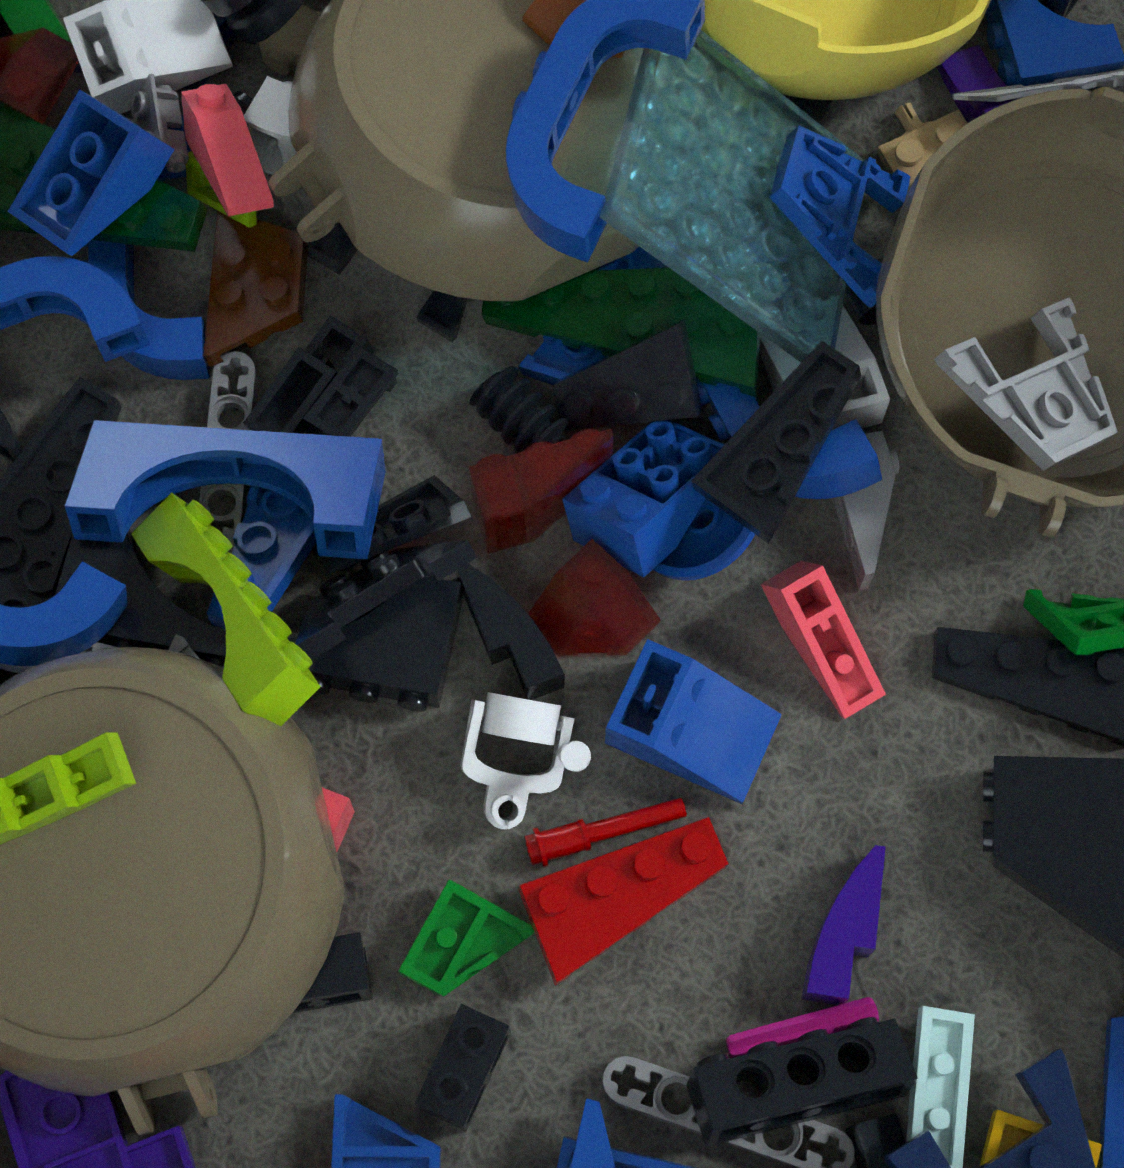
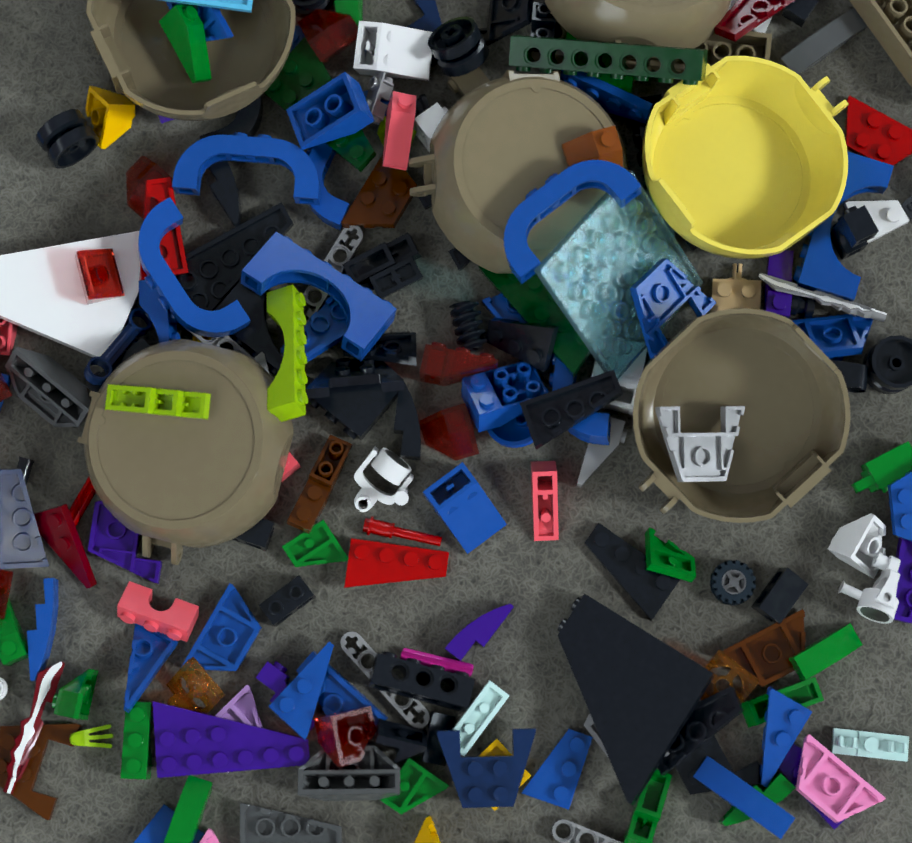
camera: 30 degrees right, 10 degrees up
(407, 821) = (320, 484): none -> reddish brown slope

